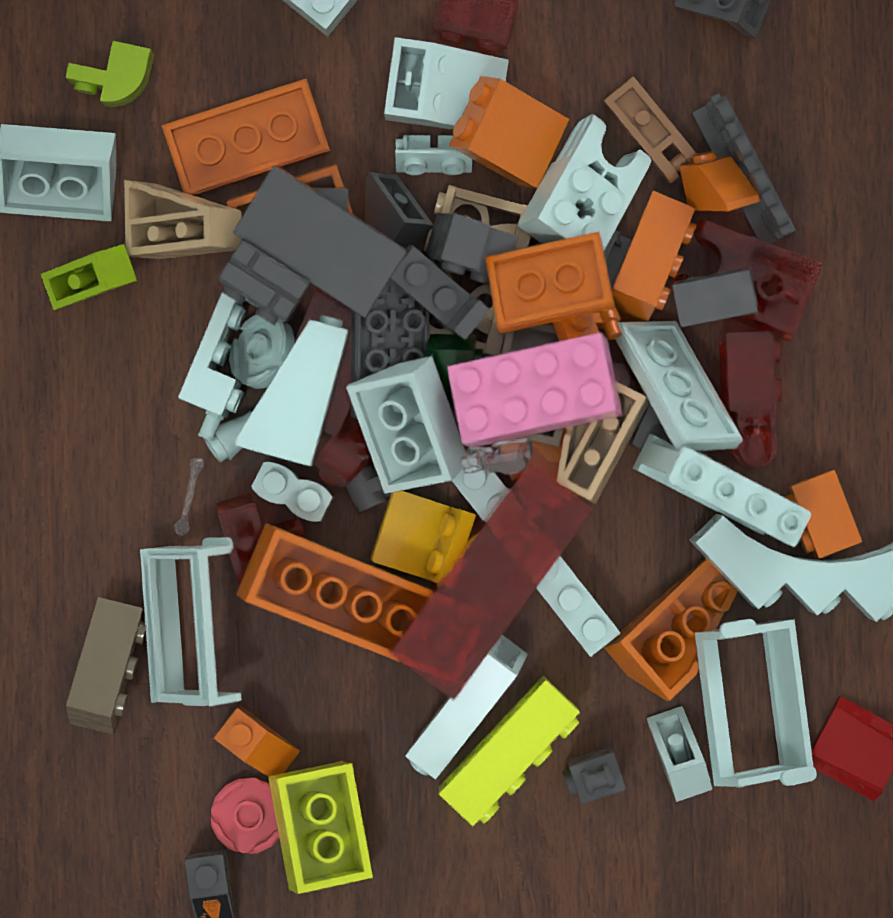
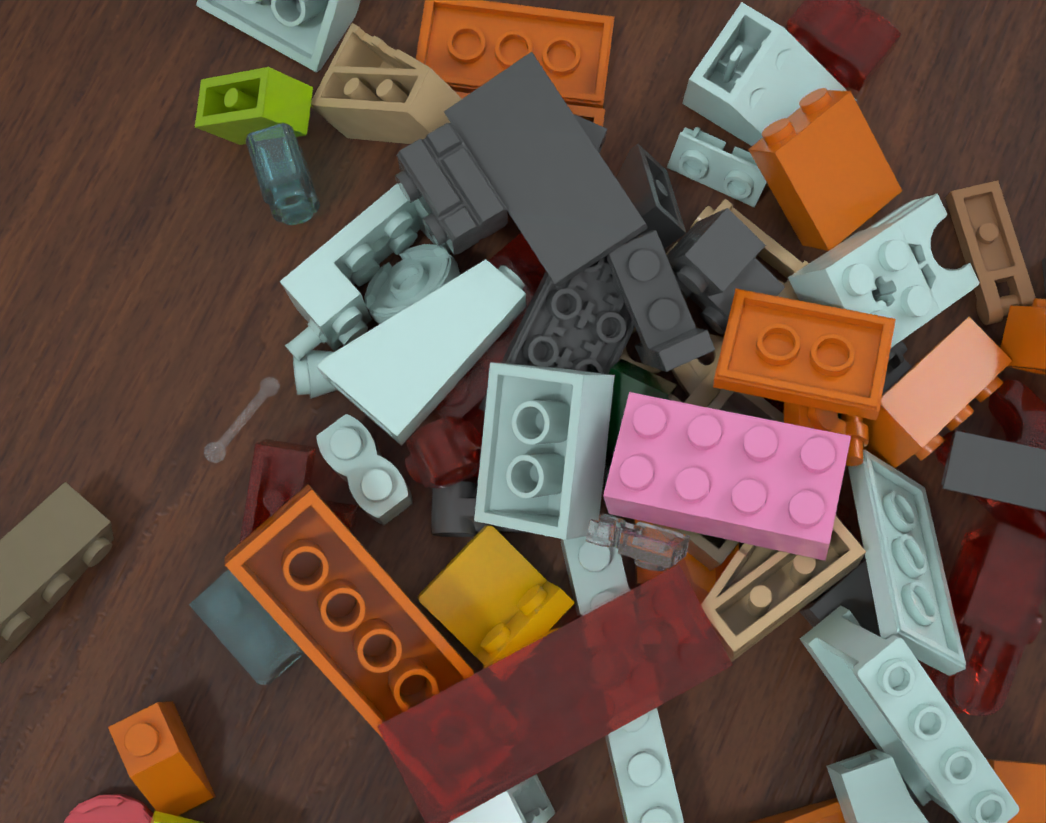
camera: 25 degrees right, 10 degrees down
(135, 316) = (283, 174): none -> clear light blue brick
(163, 623) = (126, 561): light aqua piece -> none
(268, 632) = (246, 629): none -> clear light blue brick

